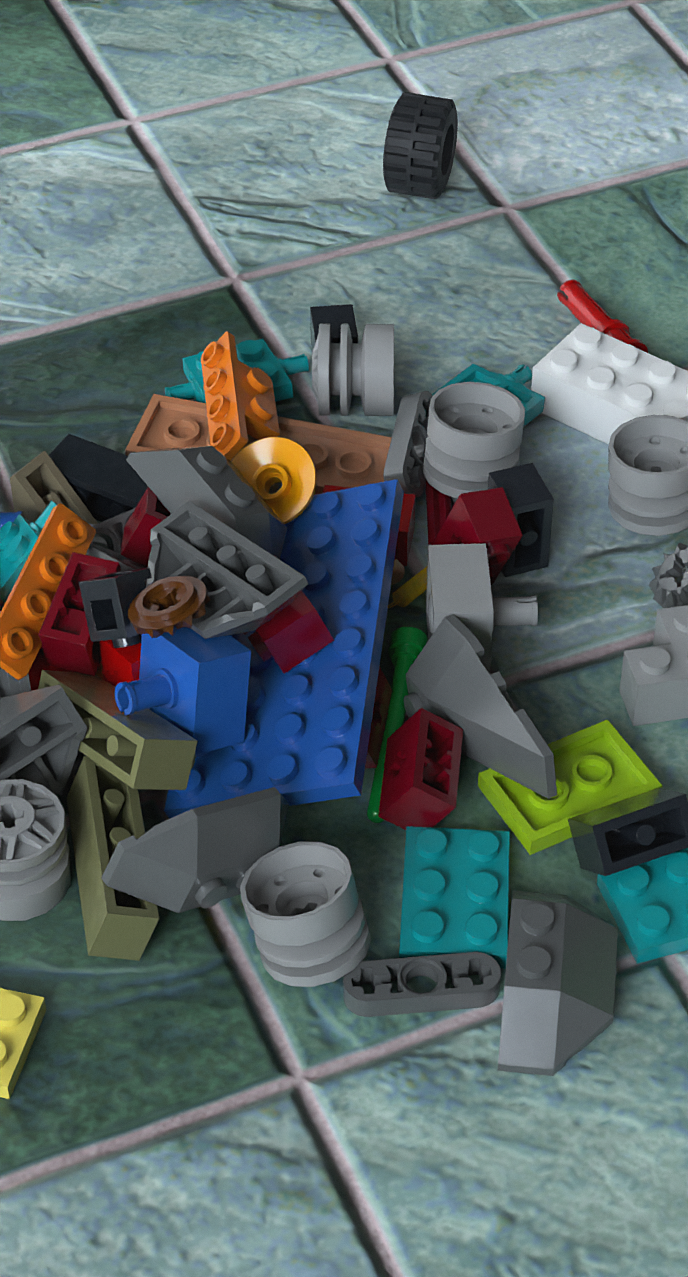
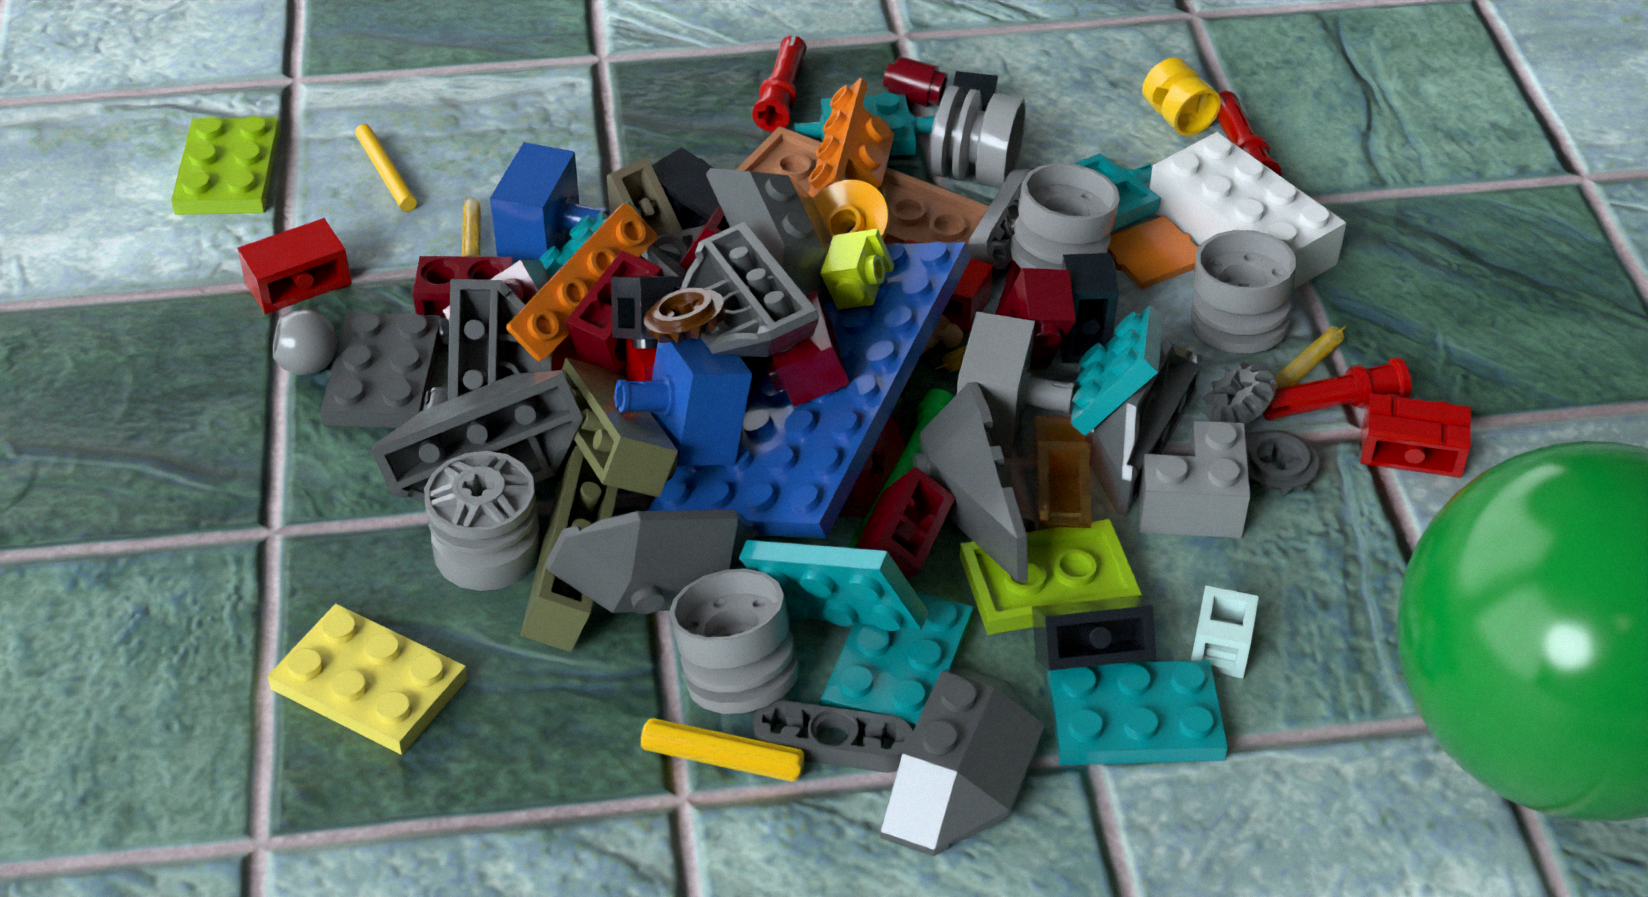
camera: 15 degrees right, 0 degrees up
(137, 358) = (778, 92): none -> red pin
(269, 322) = (917, 80): none -> dark red brick
(301, 525) = (856, 268): none -> neon yellow brick
(323, 1021) = (722, 750): none -> yellow axle
(391, 836) = (838, 584): none -> teal plate
(530, 293) = (1181, 96): none -> yellow wheel
(547, 684) = (1061, 473): none -> clear orange slope
(558, 450) = (1152, 252): none -> orange piece
(573, 574) = (1117, 369): none -> teal plate
(600, 621) = (1142, 425): none -> dark grey wedge

